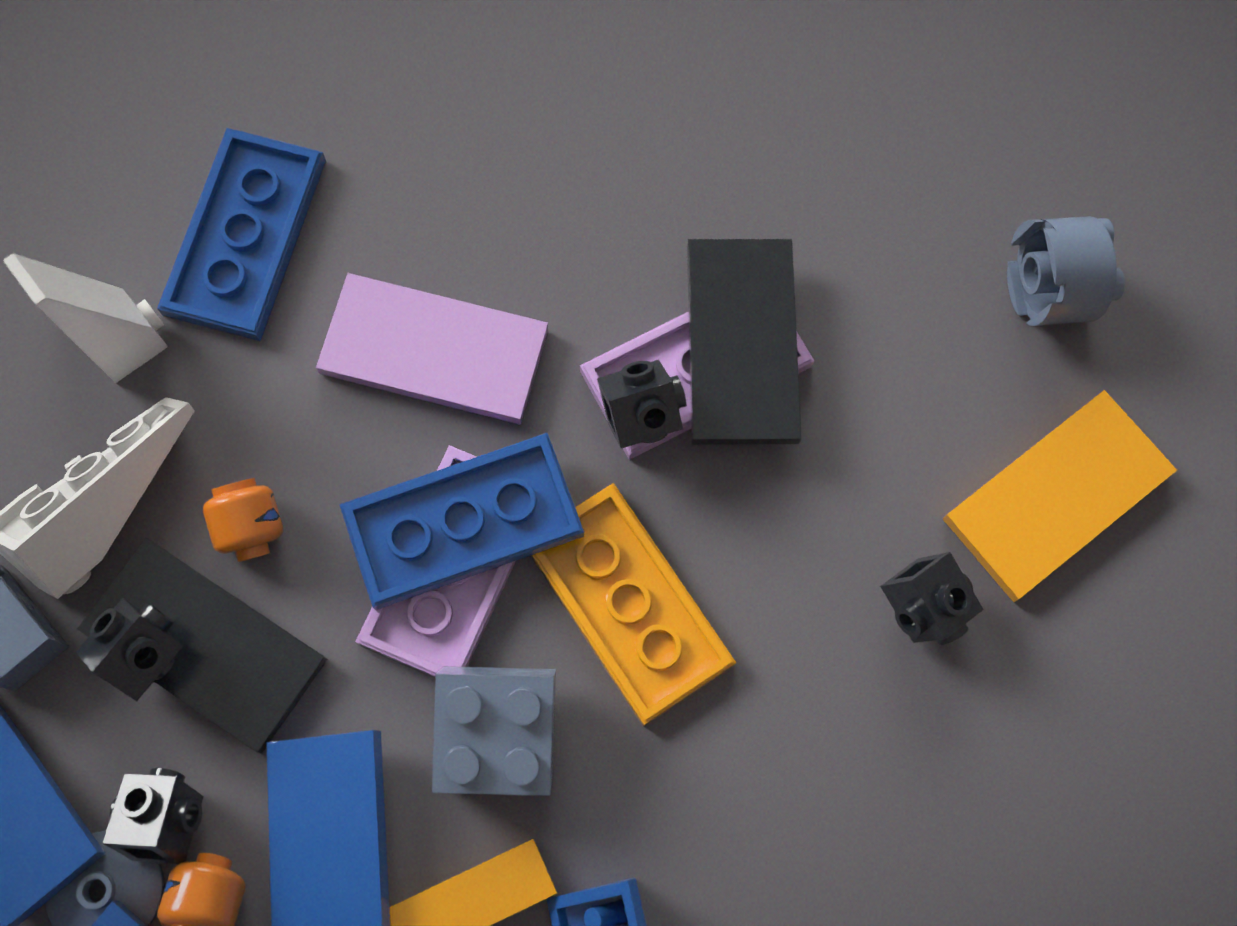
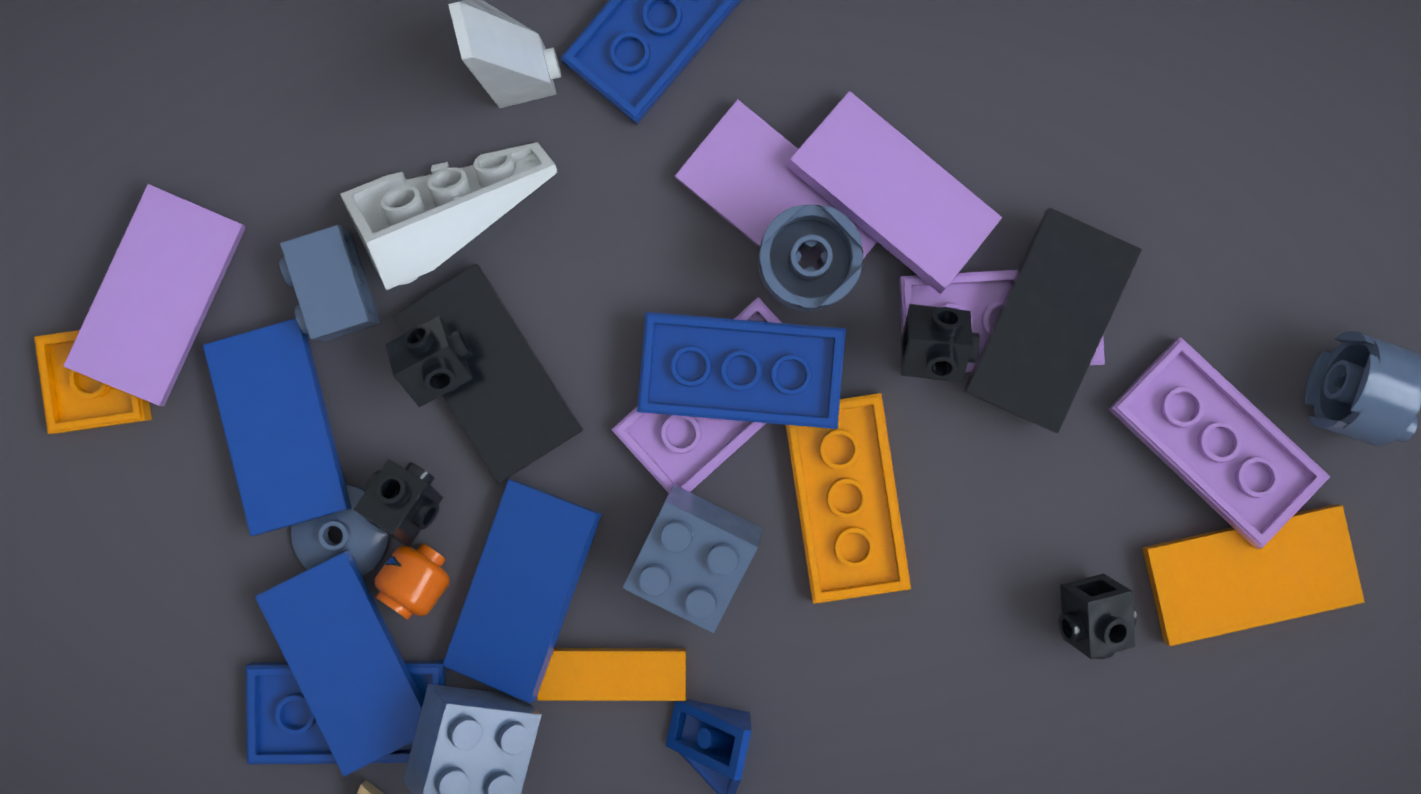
camera: 25 degrees right, 15 degrees up
(242, 519) = (561, 285): orange head -> none
(466, 352) = (810, 229): none -> sand blue brick
(536, 291) = (894, 192): none -> lavender tile
(959, 385) = (1219, 443): none -> lavender tile

